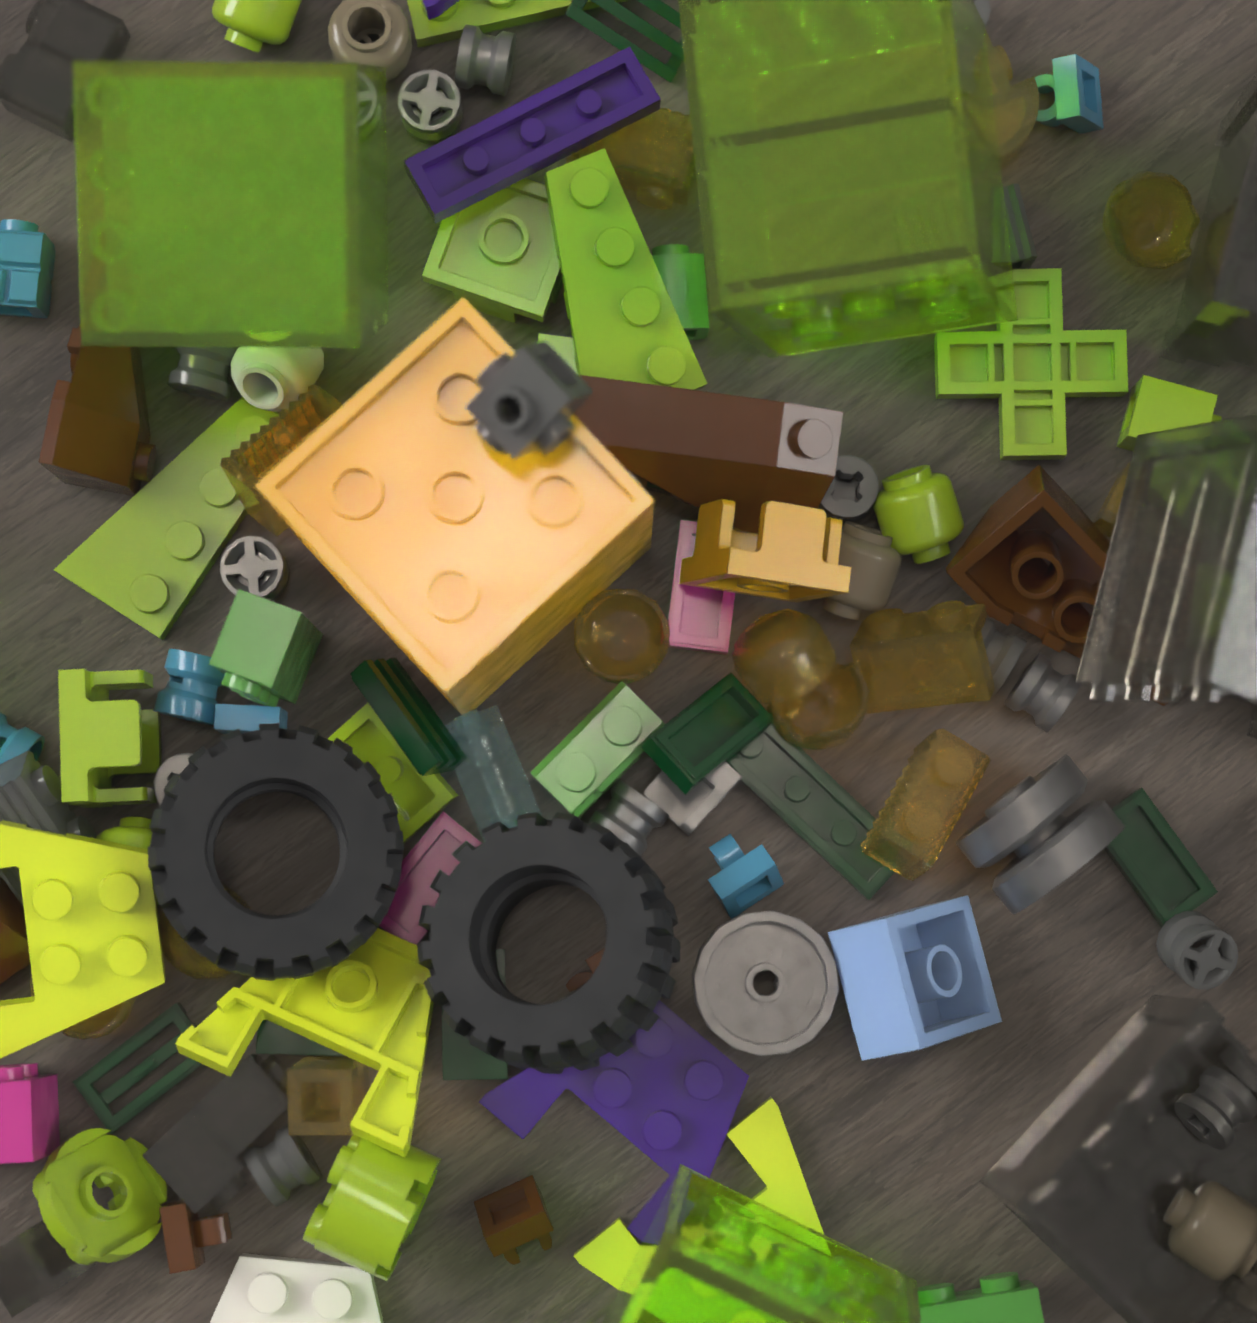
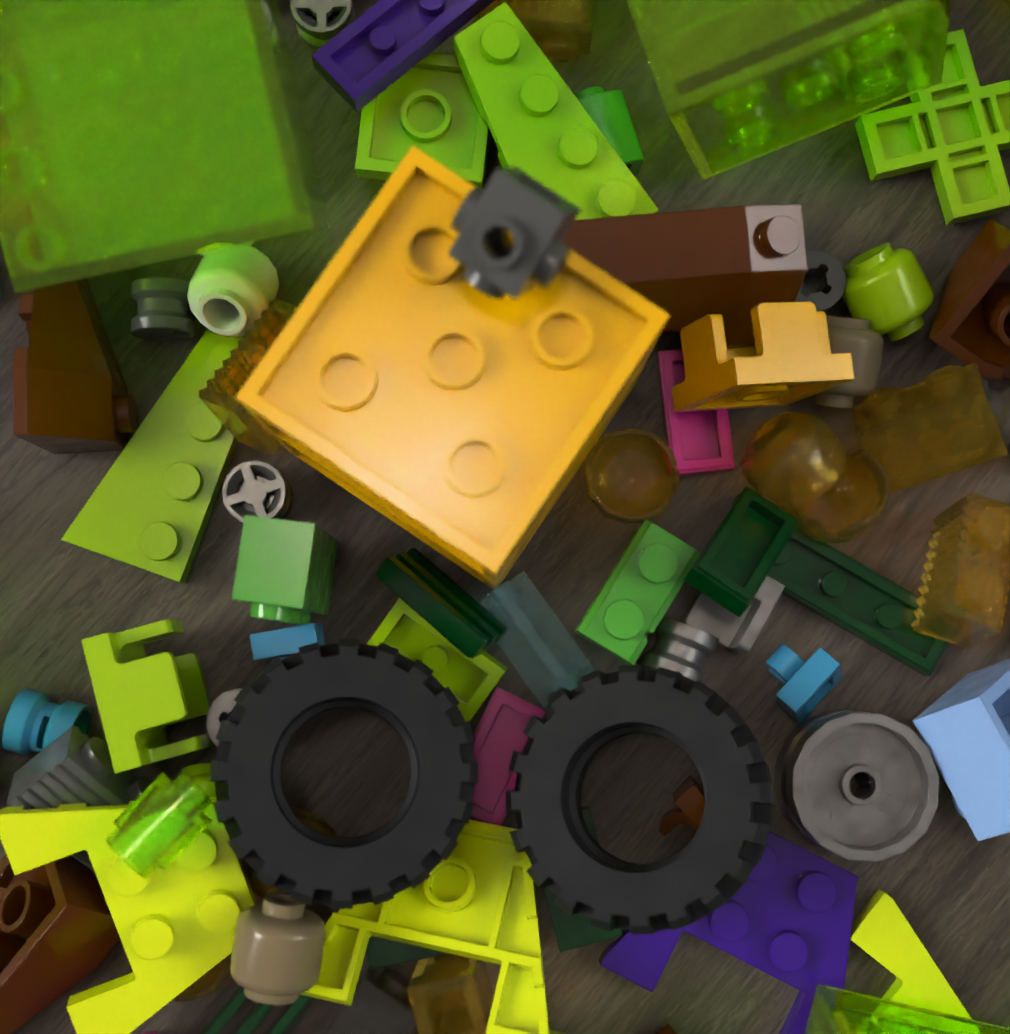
camera: 15 degrees left, 0 degrees up
(95, 856) = (161, 823): none -> clear neon green brick
(174, 1001) = (277, 950): none -> dark tan head
(191, 687) = (221, 625): dark azure wheel -> none

